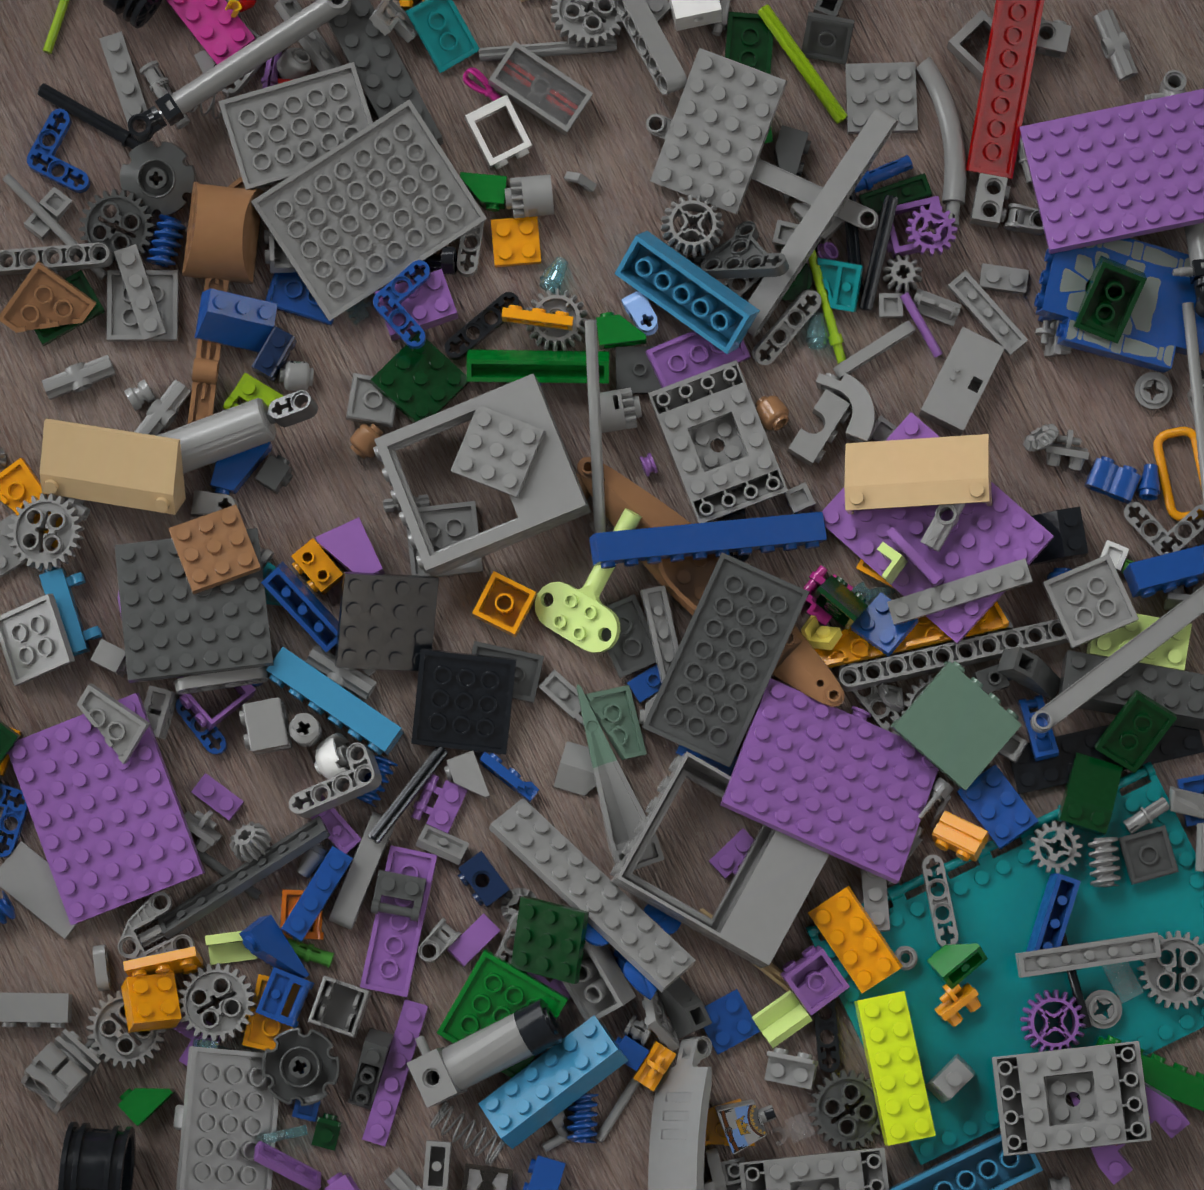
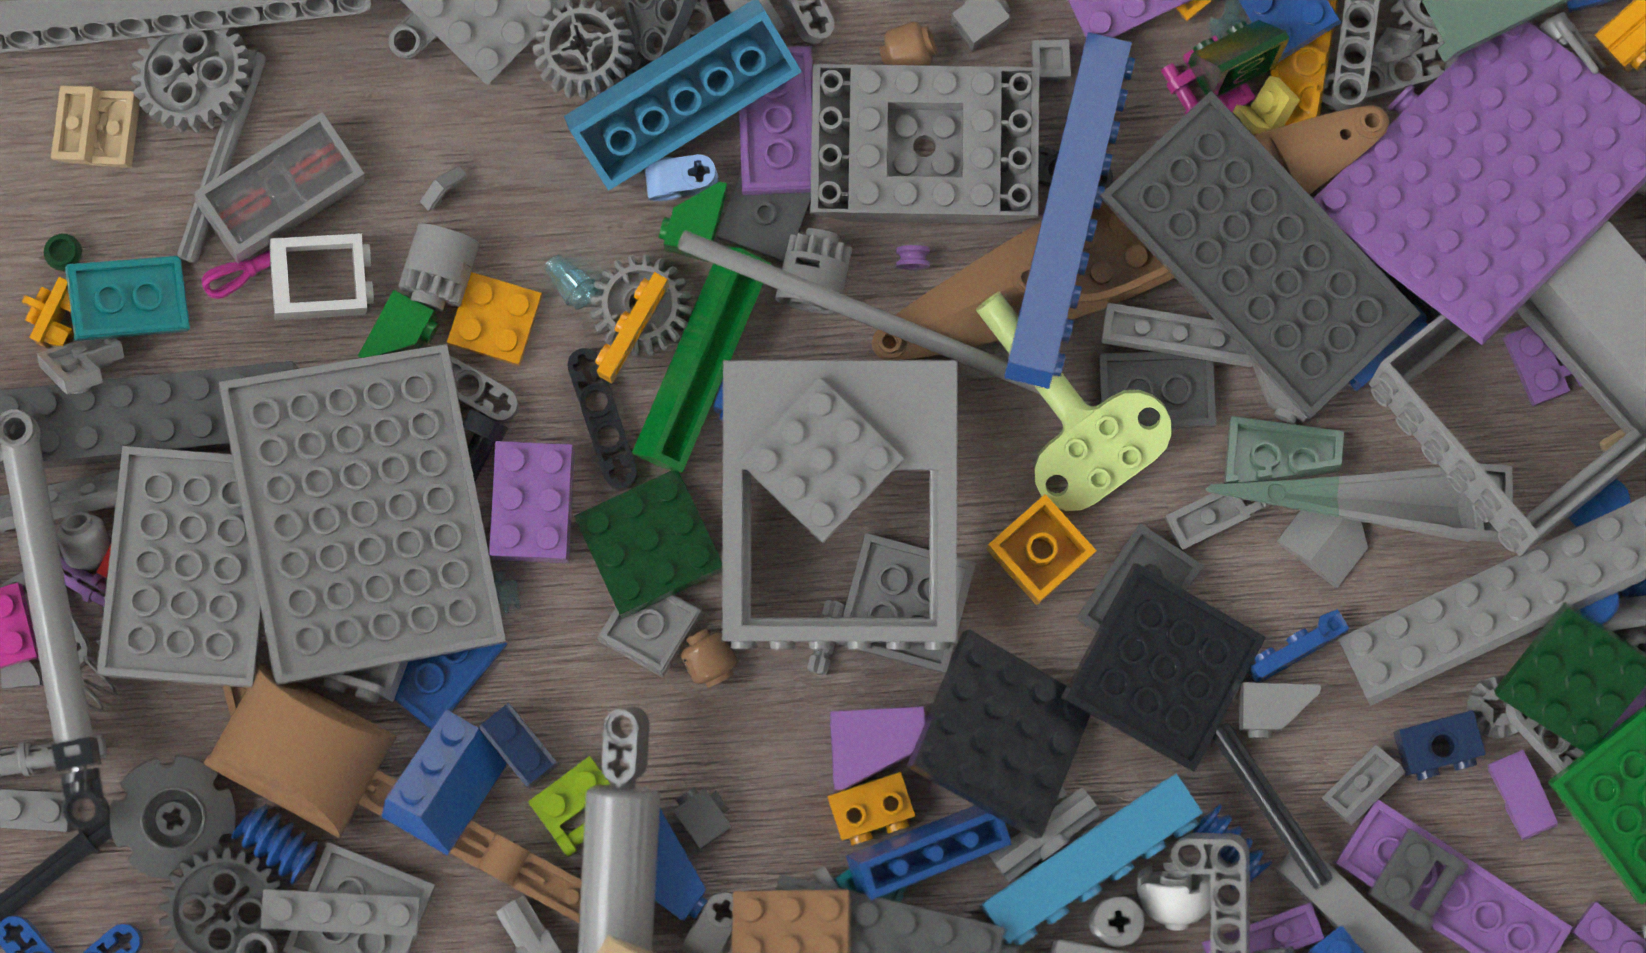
camera: 70 degrees left, 0 degrees up
(296, 375) = (566, 725): light grey head -> none
(396, 299) = (515, 524): blue beam -> none
(439, 940) = (1505, 846): light grey piece -> none
(446, 807) = (1307, 758): medium lavender plate -> none
(645, 684) = (1237, 390): blue plate -> none

